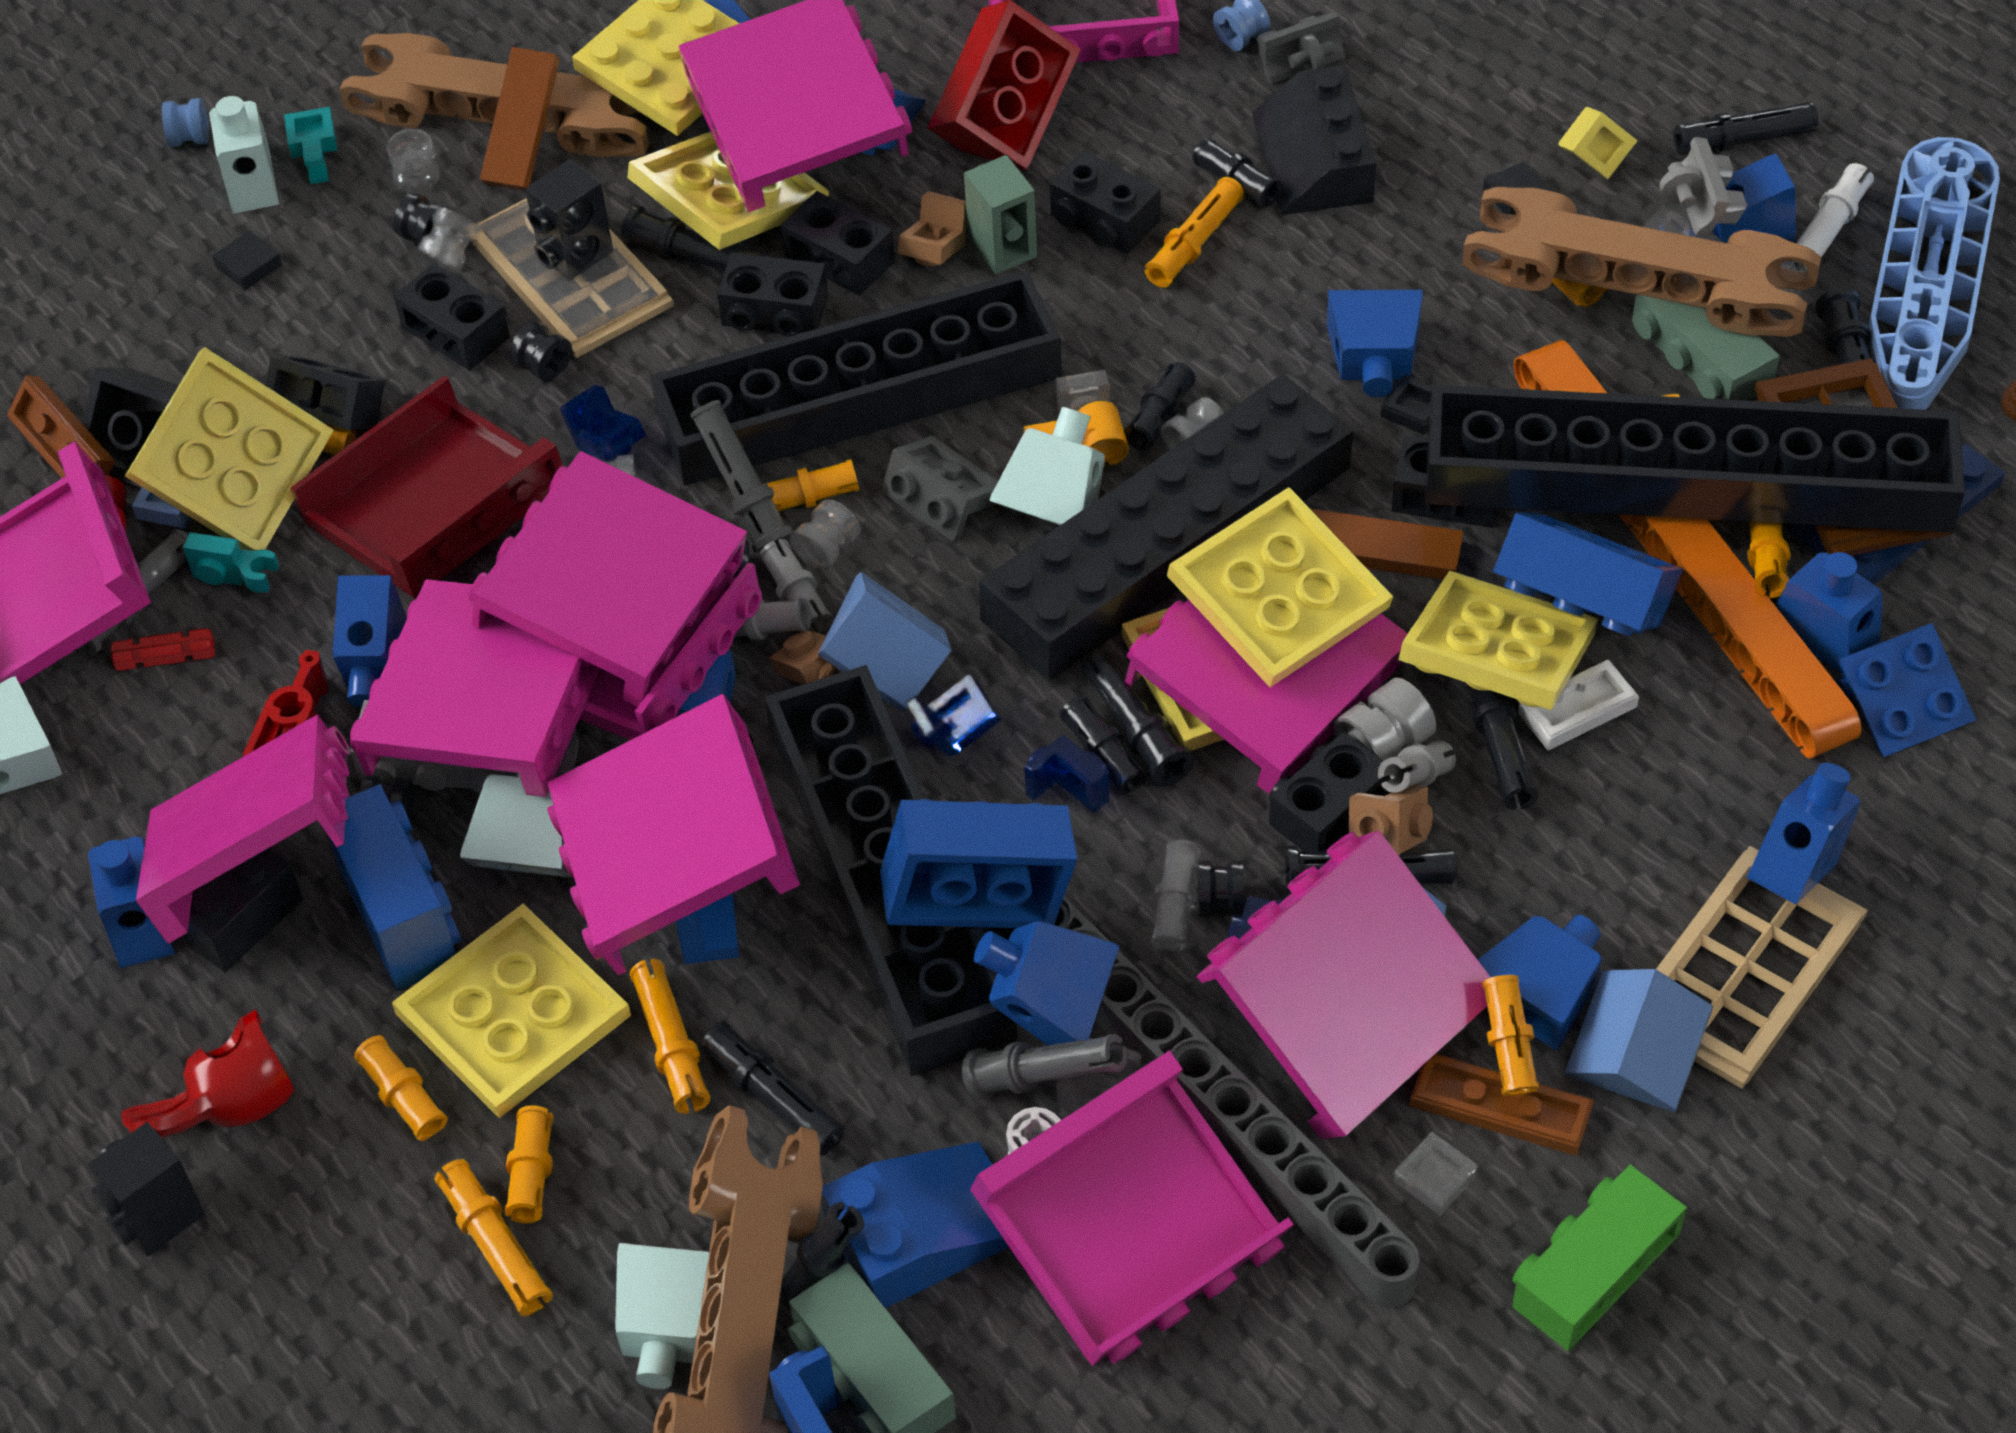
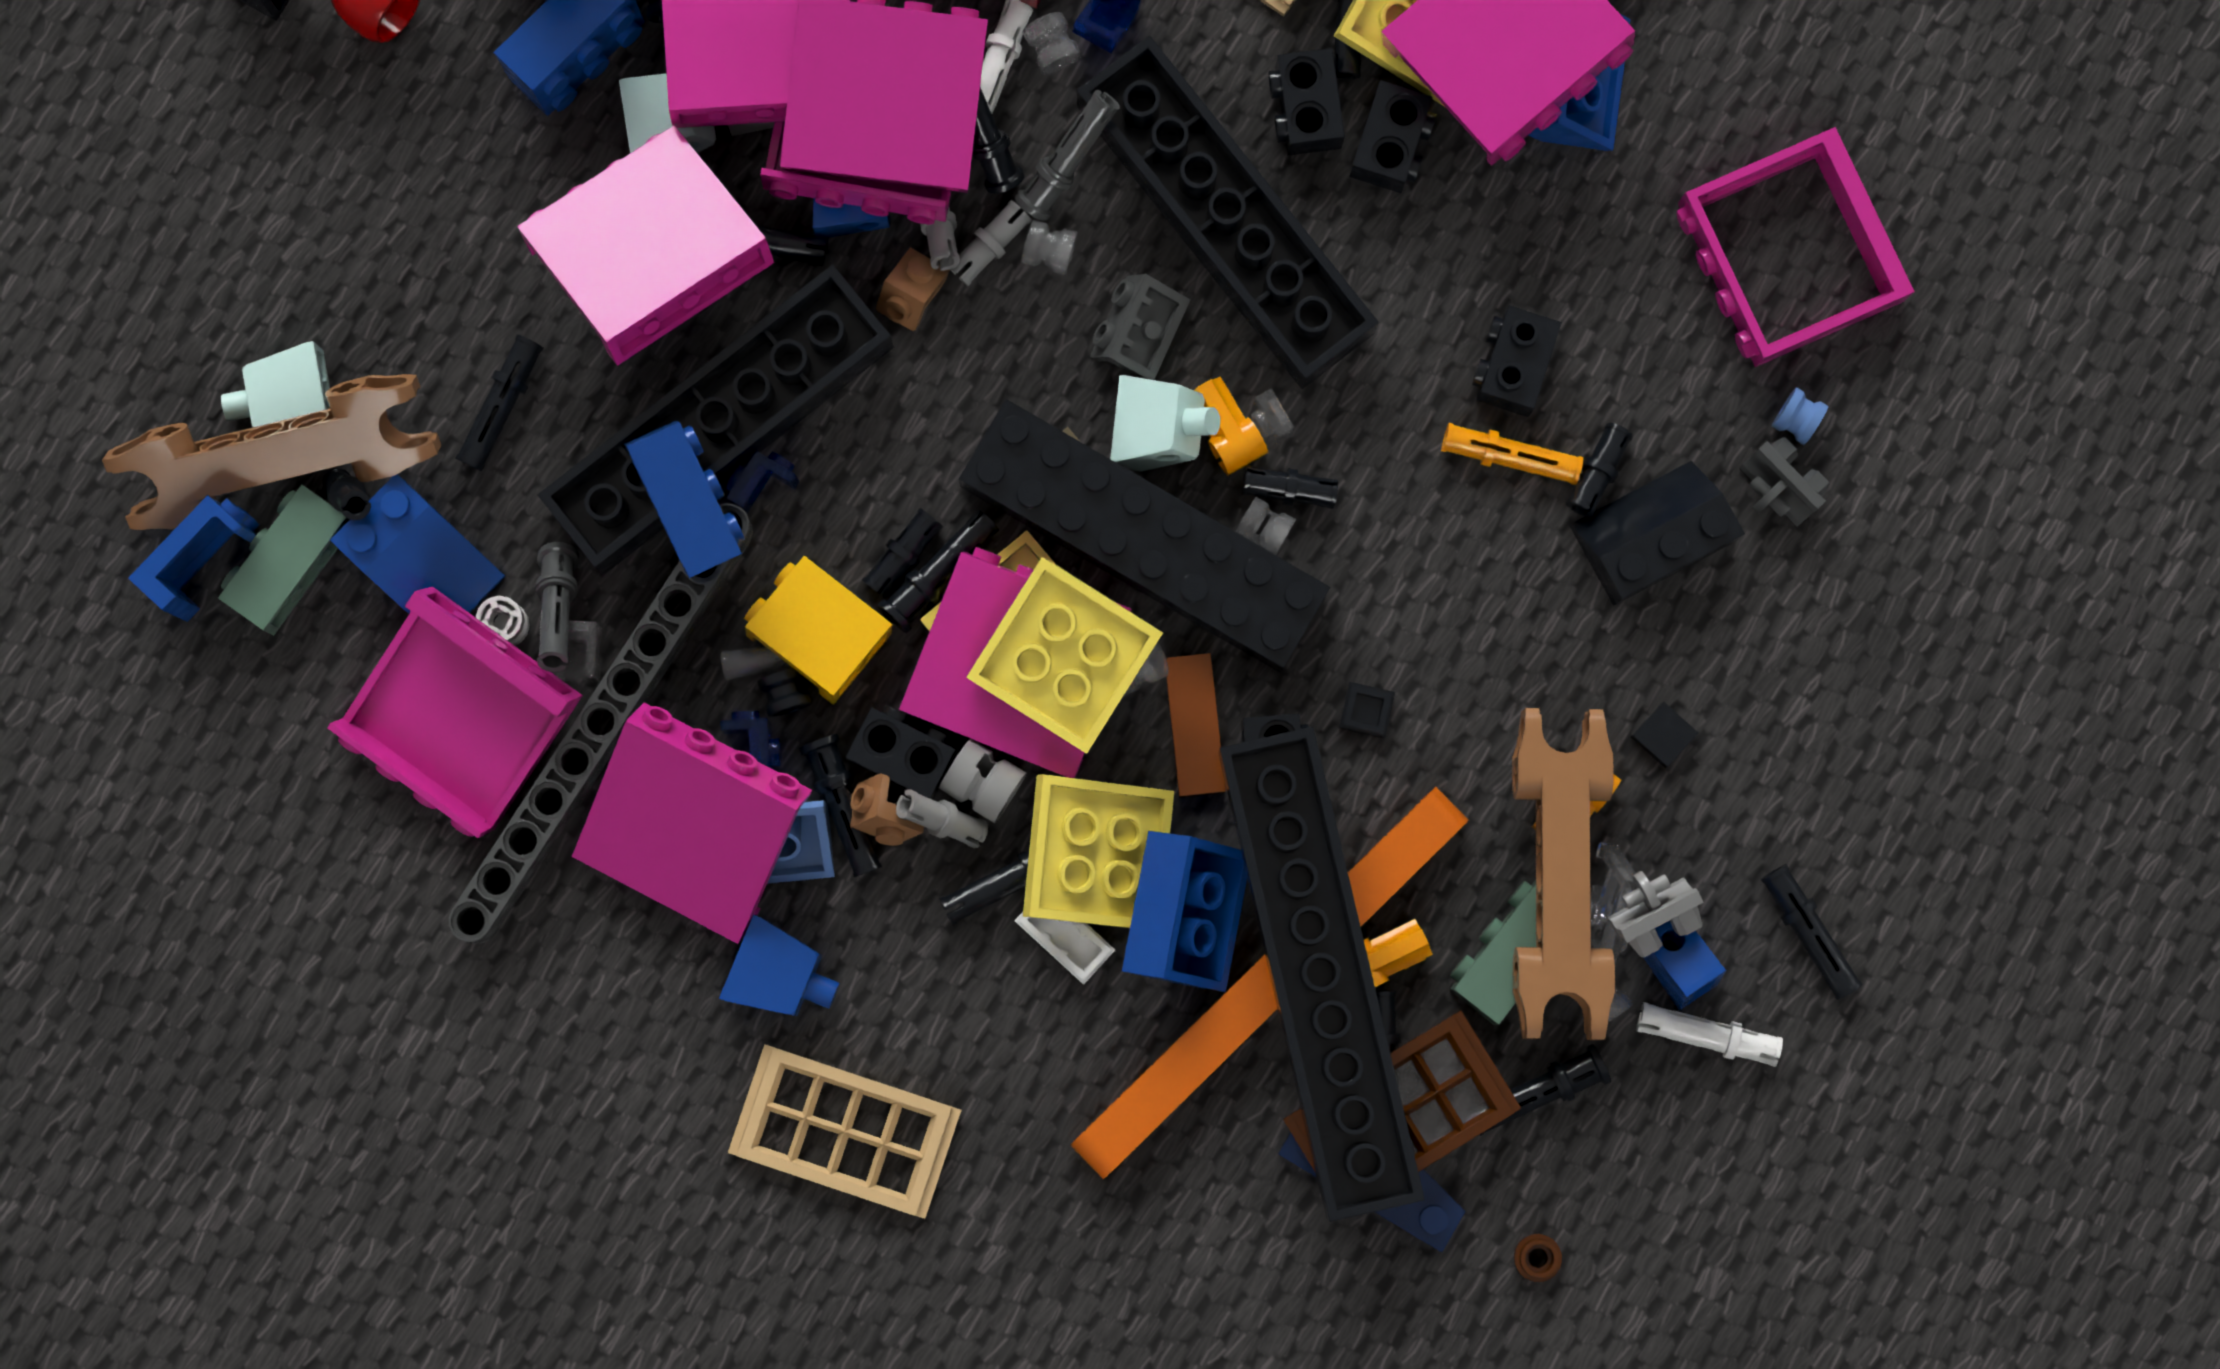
camera: 65 degrees right, 30 degrees up
(400, 1087) = (415, 120): light orange pin -> none
(482, 1219) = (317, 235): light orange pin -> none
(511, 1010) = (503, 169): light yellow plate -> none
(529, 1164) = (378, 244): light orange pin -> none
(675, 1053) = (511, 314): light orange pin -> none
(814, 485) = (1101, 213): light orange pin -> none
(888, 637) = (944, 340): medium blue slope -> none
(938, 232) = (1430, 219): medium nougat bracket -> none
(954, 717) = (889, 420): clear blue bracket -> none
(1001, 214) = (1455, 272): sand green brick -> none
(1004, 85) = (1621, 222): red slope -> none
(1048, 979) = (613, 587): blue torso -> none
(1077, 772) = (864, 543): clear blue bracket -> none
(1159, 831) = (818, 627): none -> yellow panel
(1374, 335) = (1425, 655): blue torso -> none
(1435, 1173) = (572, 933): clear plate -> none
(1476, 1098) = (657, 971): dark orange tile -> none
(1510, 1035) = (670, 972): light orange pin -> none
(1597, 141) = (1744, 795): light yellow panel -> none
(1597, 1256) = (532, 1073): bright green brick -> none
(1640, 1037) = (736, 1061): medium blue slope -> none
(1768, 557) = (1257, 1064): light orange pin -> none
(1814, 821) = (960, 1154): blue torso -> none
(1832, 608) = (1216, 1127): blue torso -> none
(1905, 690) = (1161, 1209): blue hinge -> none
(1936, 198) = (1644, 1143): light blue beam -> none

